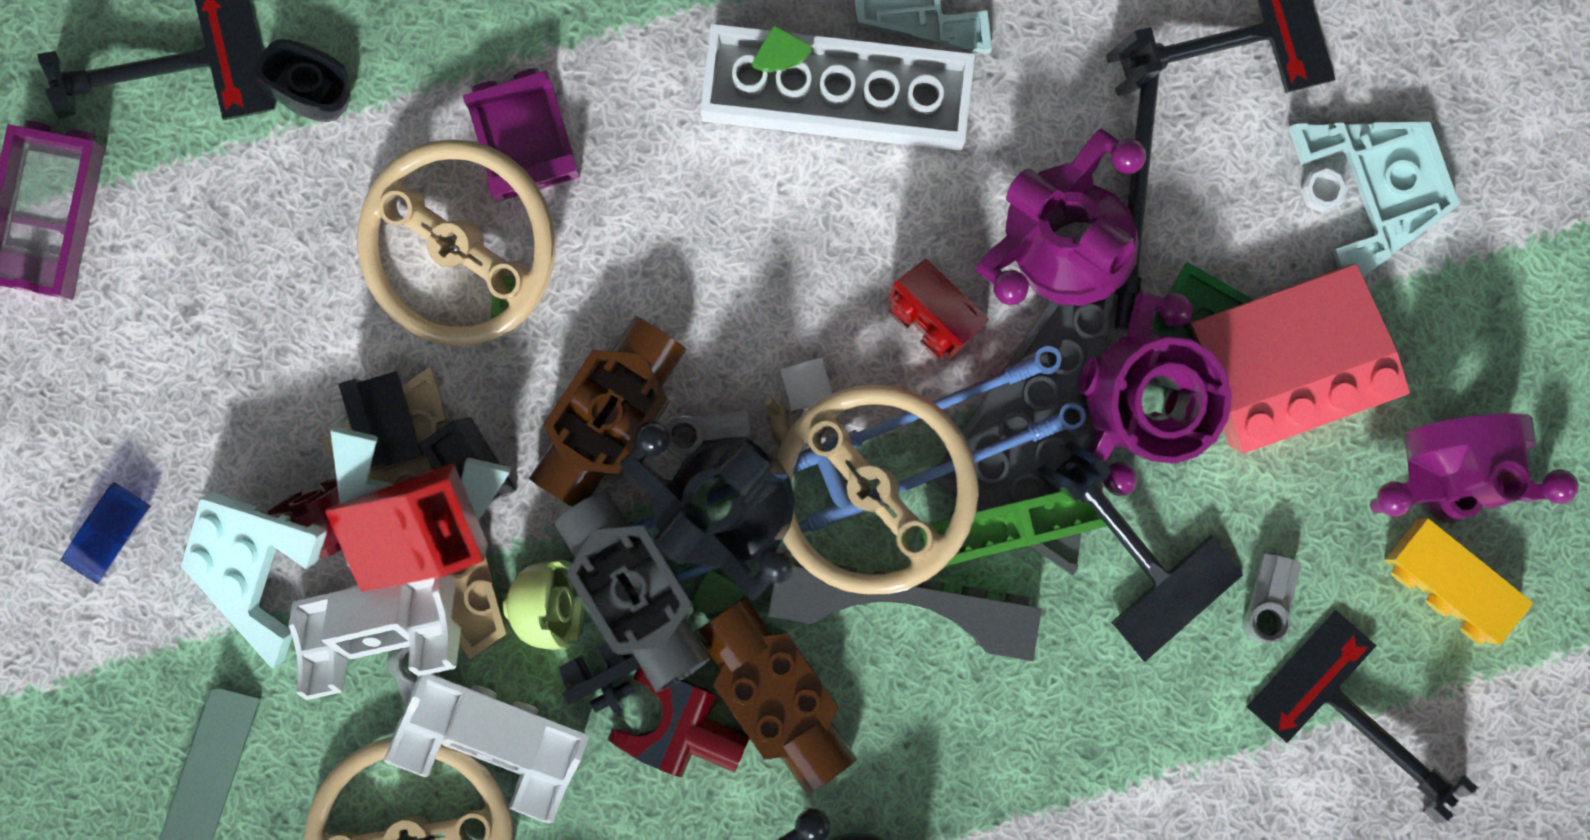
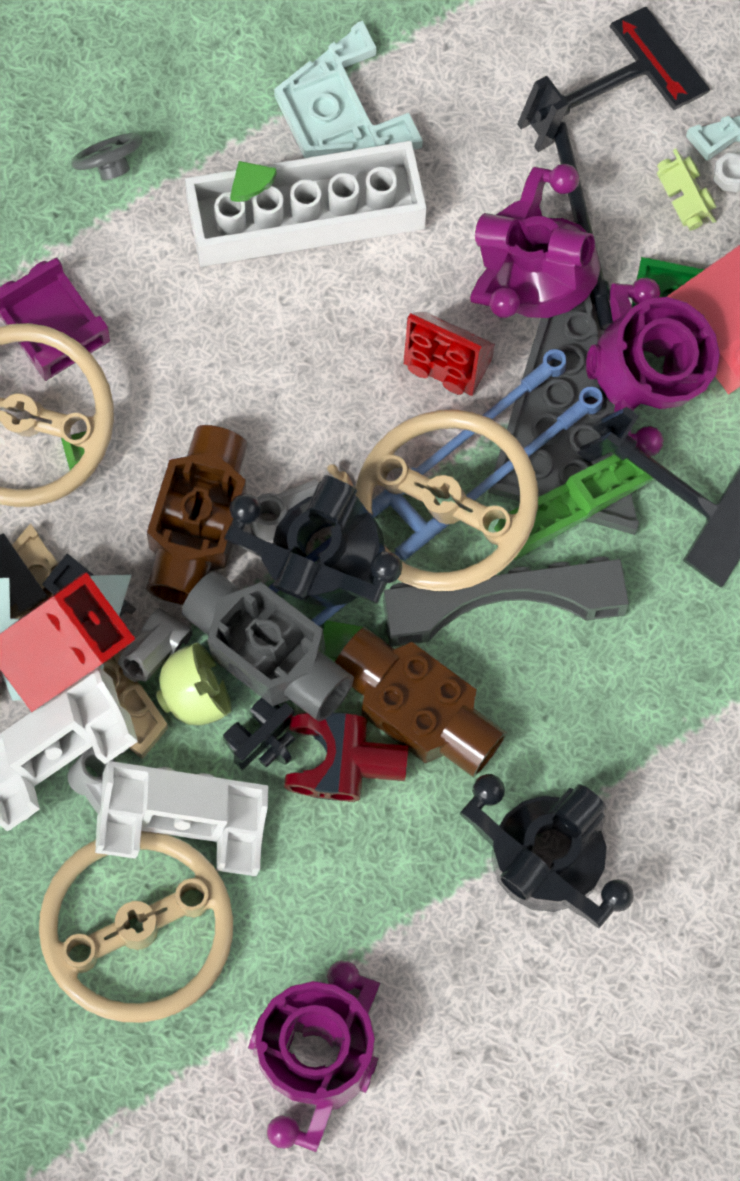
camera: 25 degrees left, 15 degrees down
(524, 540) = (157, 641): none -> light grey piece
(805, 383) = (355, 446): white tile -> none
(1266, 178) = (679, 177): none -> yellowish green hinge

